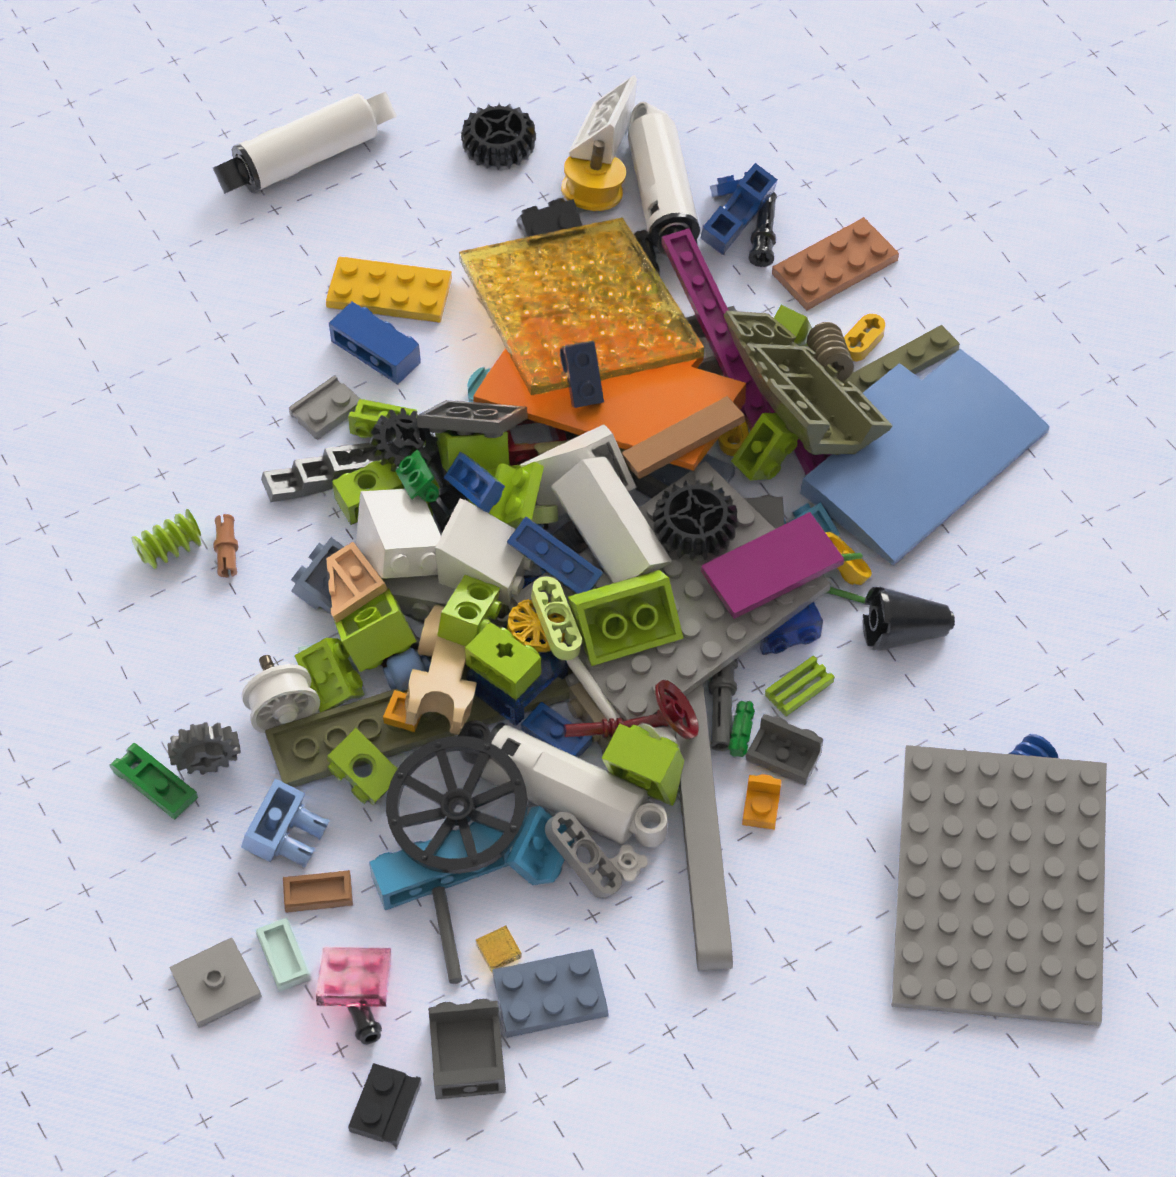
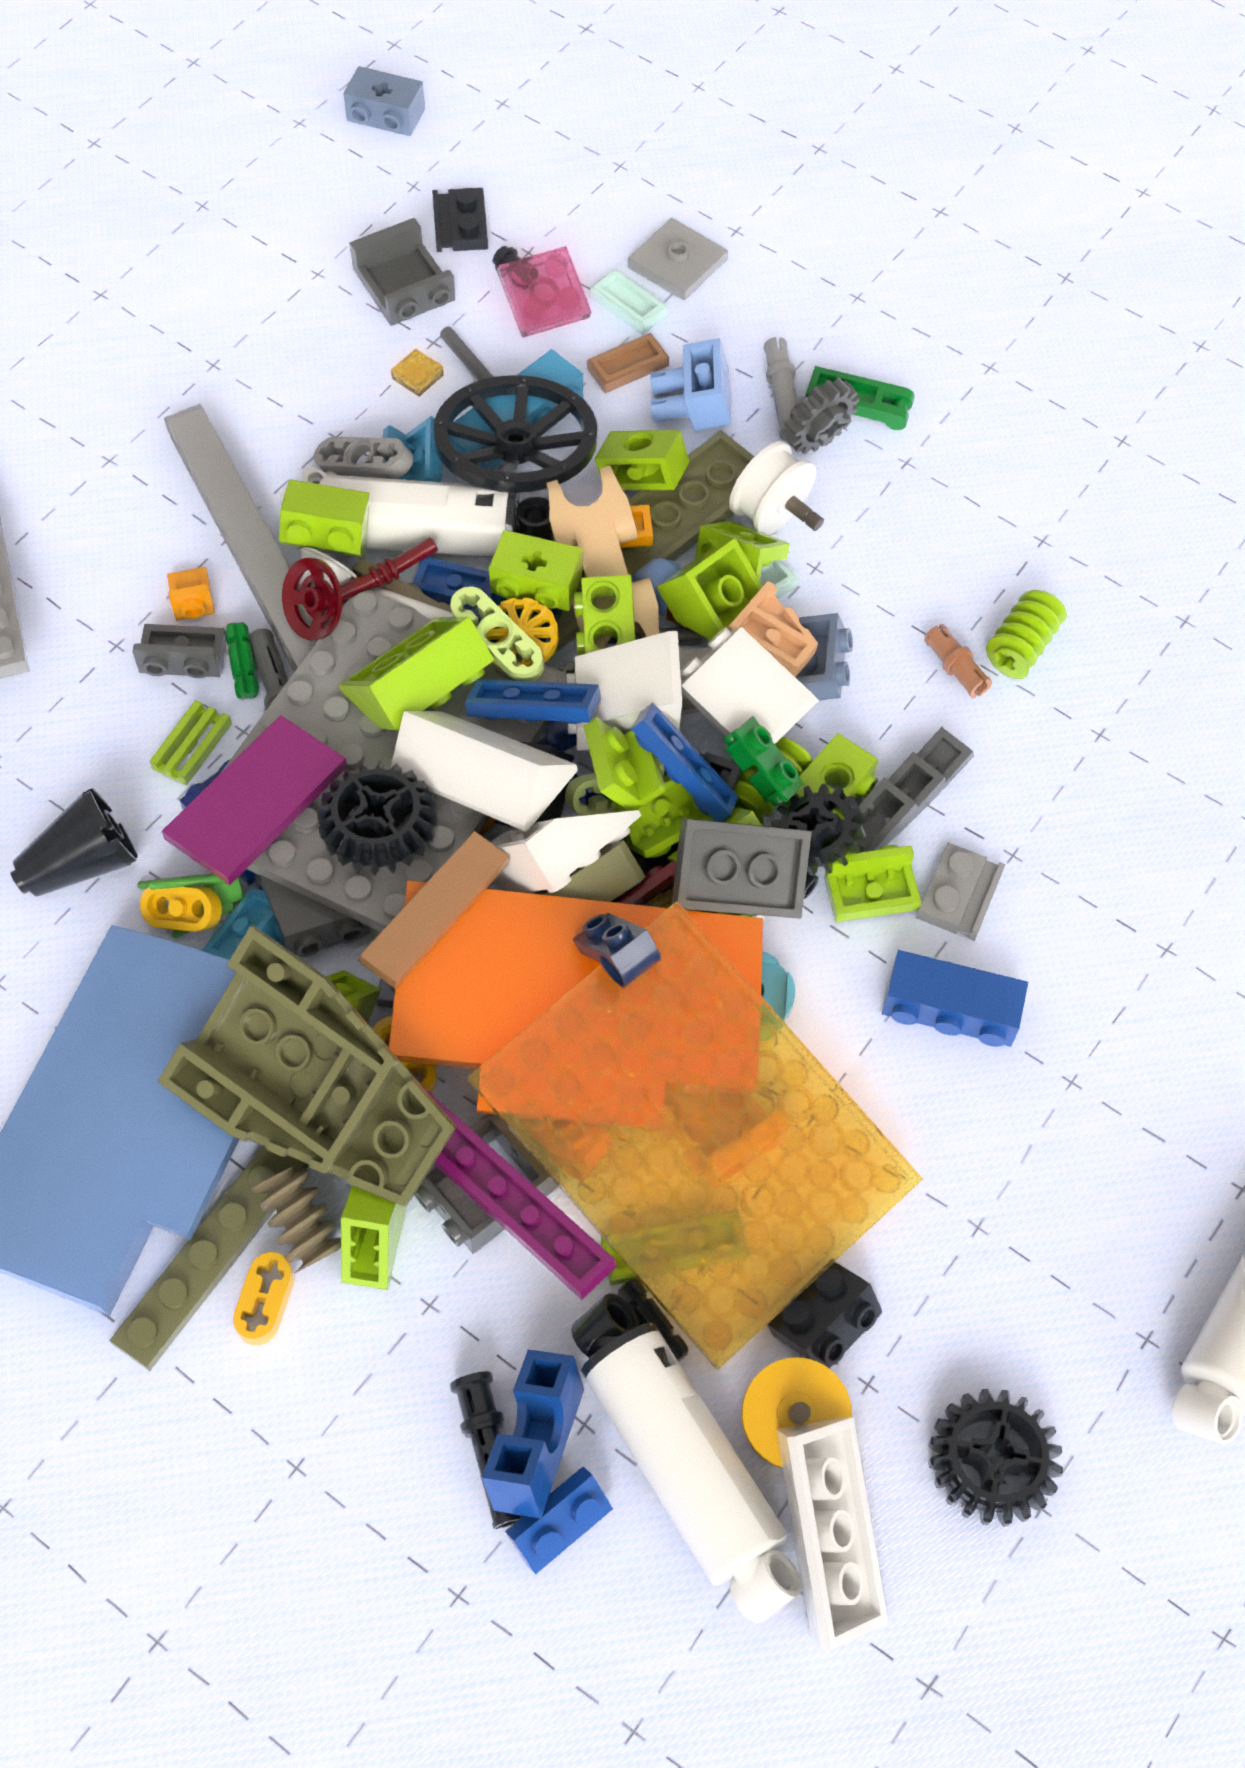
camera: 155 degrees right, 5 degrees up
(203, 822) = (781, 376): none -> light grey pin
(390, 288) = (992, 1107): yellow plate -> none
(550, 993) = (345, 351): sand blue plate -> none
(835, 263) = (351, 1432): nougat plate -> none

